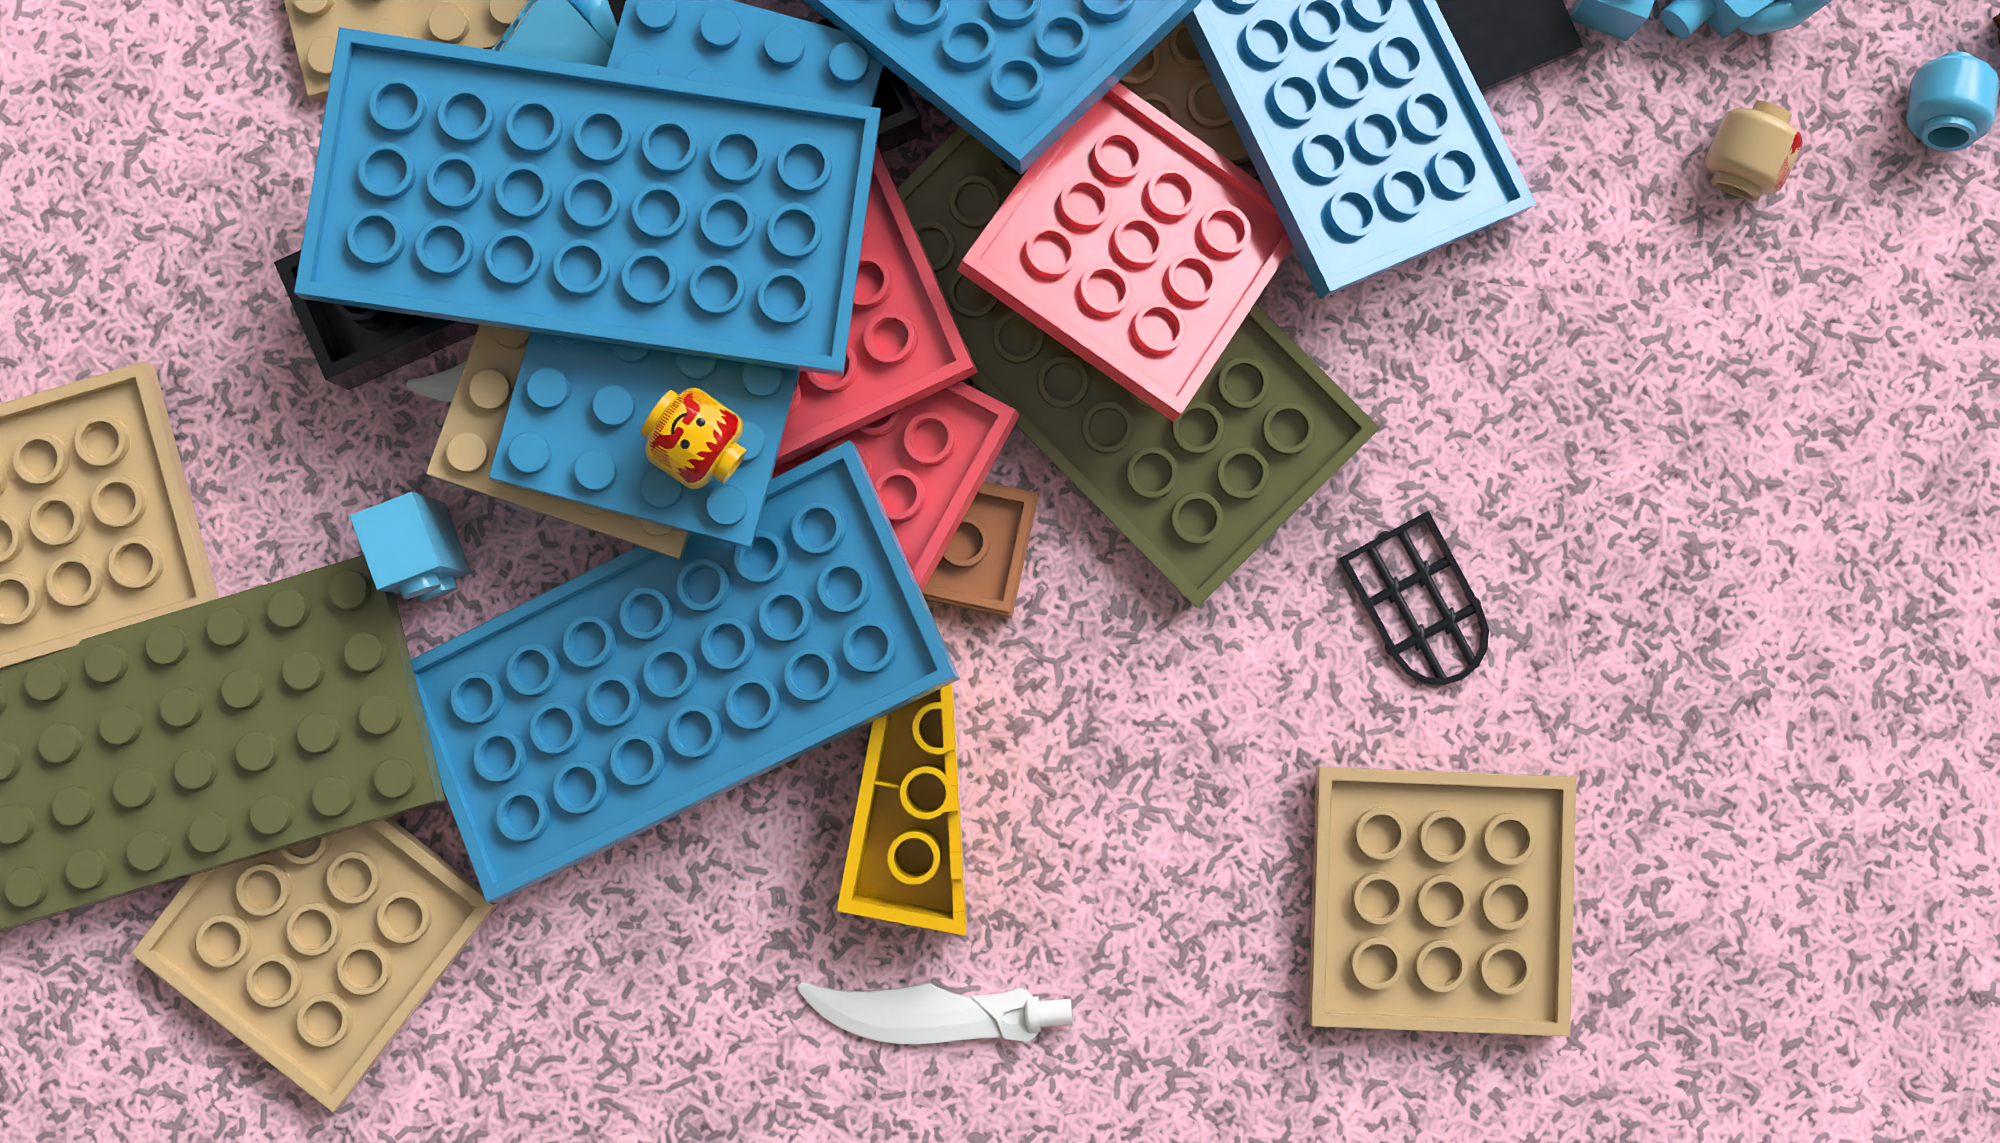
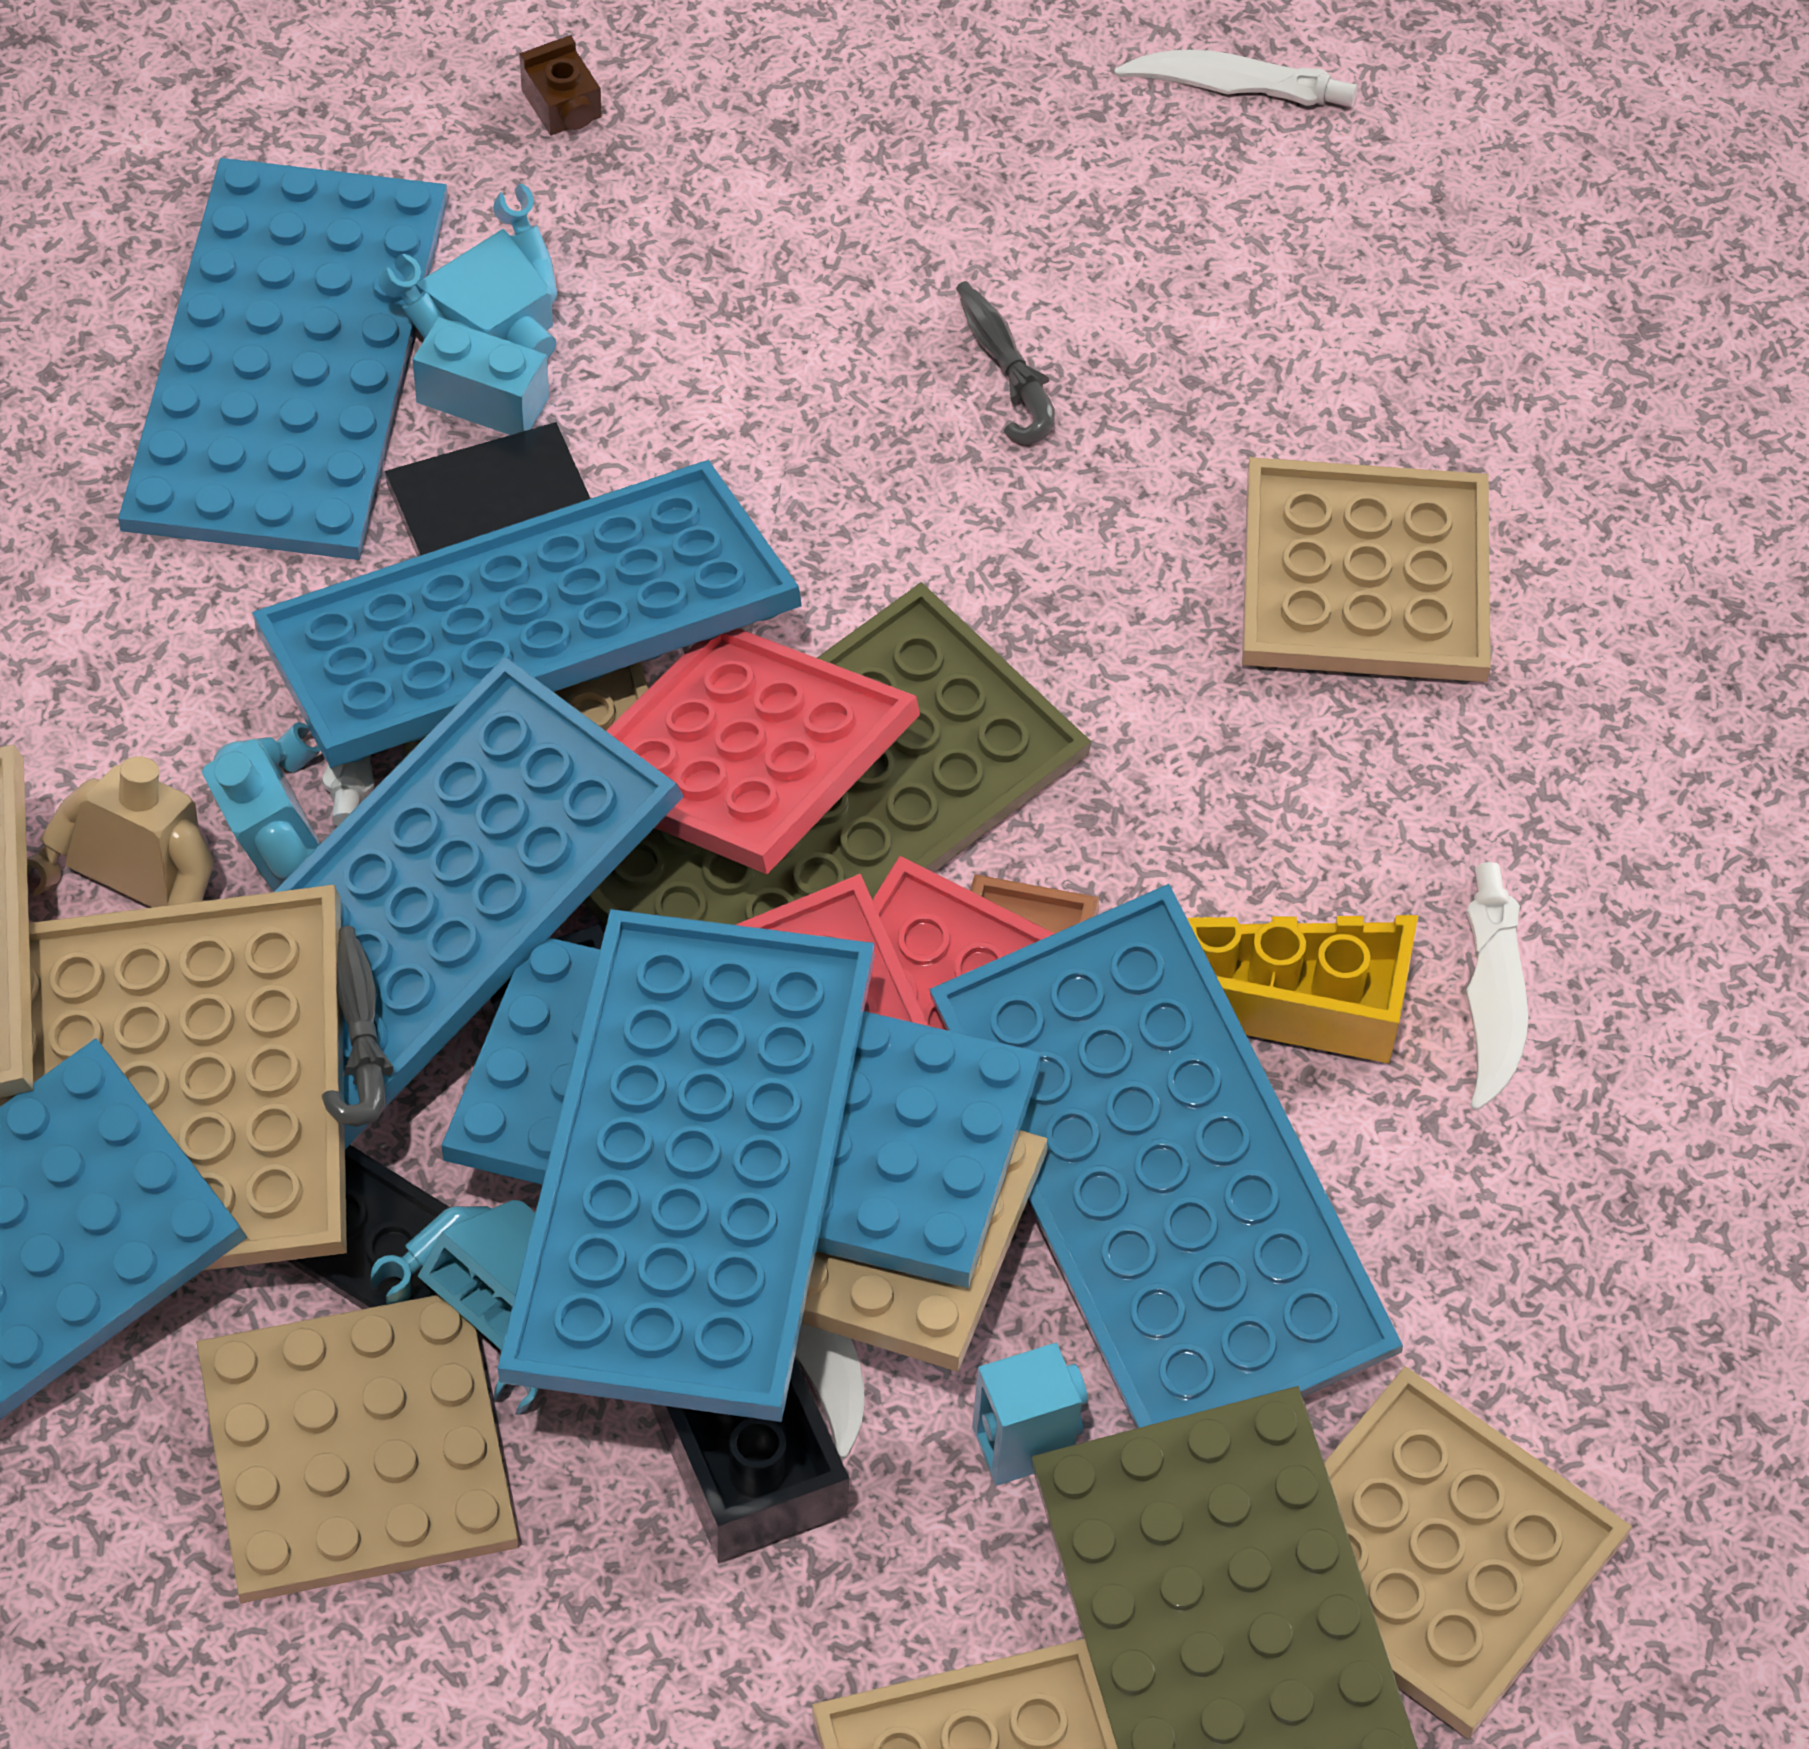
camera: 90 degrees left, 30 degrees down
(693, 438) = (937, 1070): yellow head -> none
(1423, 576) = (1077, 598): black window -> none
(1671, 537) = (1025, 382): none -> dark grey piece
(1753, 150) = (668, 299): tan head -> none
(1952, 101) = (631, 158): medium azure head -> none

